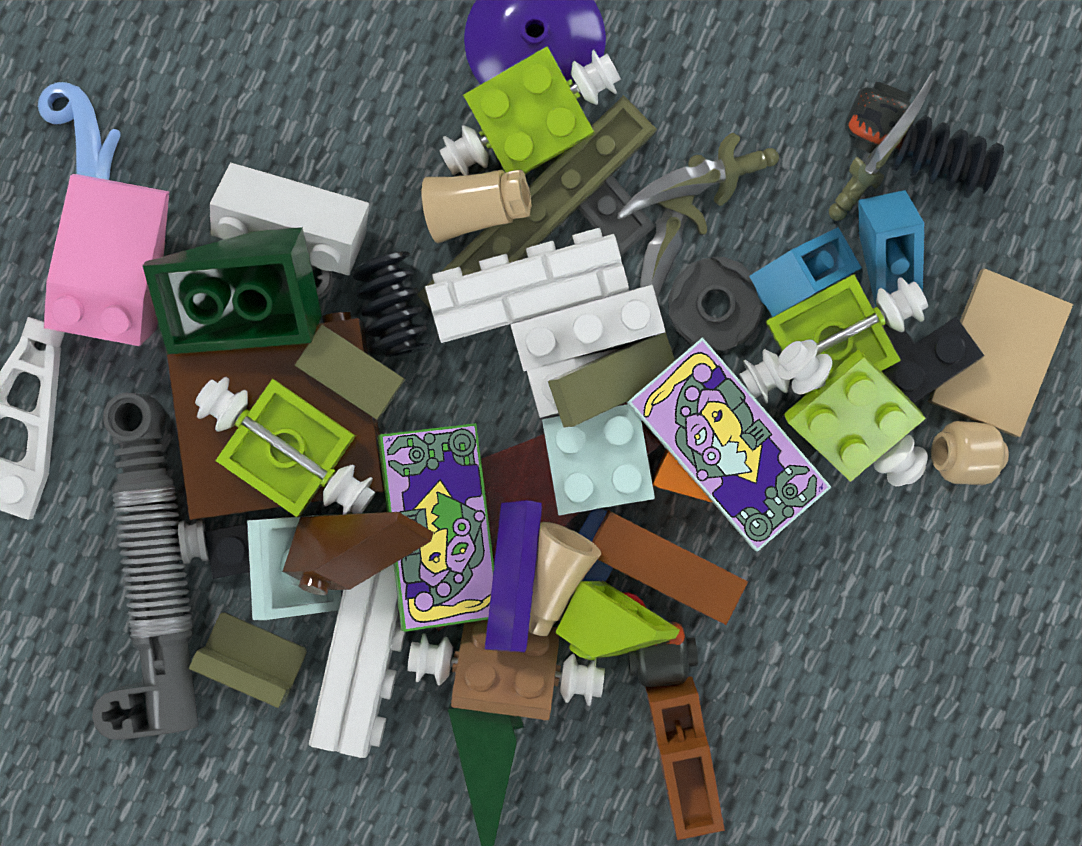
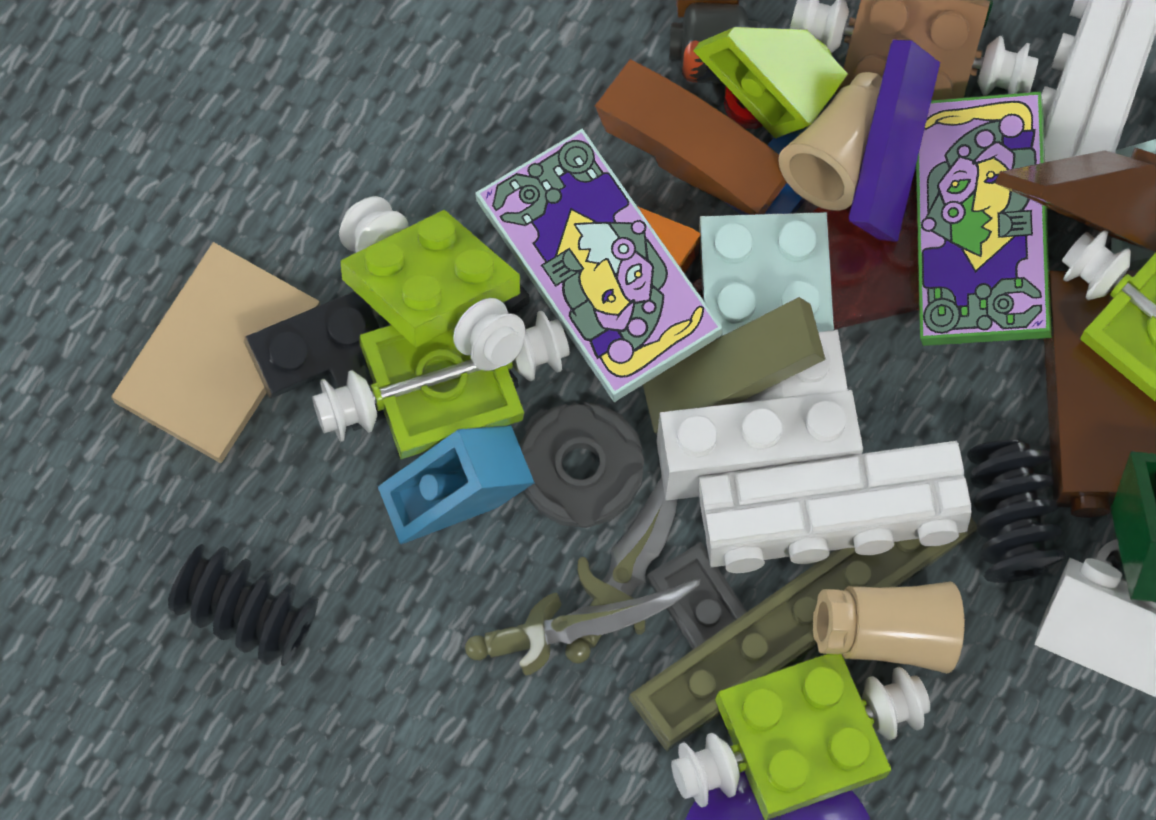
camera: 175 degrees left, 15 degrees down
(350, 372) = (1080, 418): olive tile -> none
(868, 173) = (350, 597): piece -> none
(875, 114) = (322, 670): pearl dark grey head -> none
(891, 241) = (337, 500): dark azure slope -> none
(969, 453) = (283, 228): tan head -> none

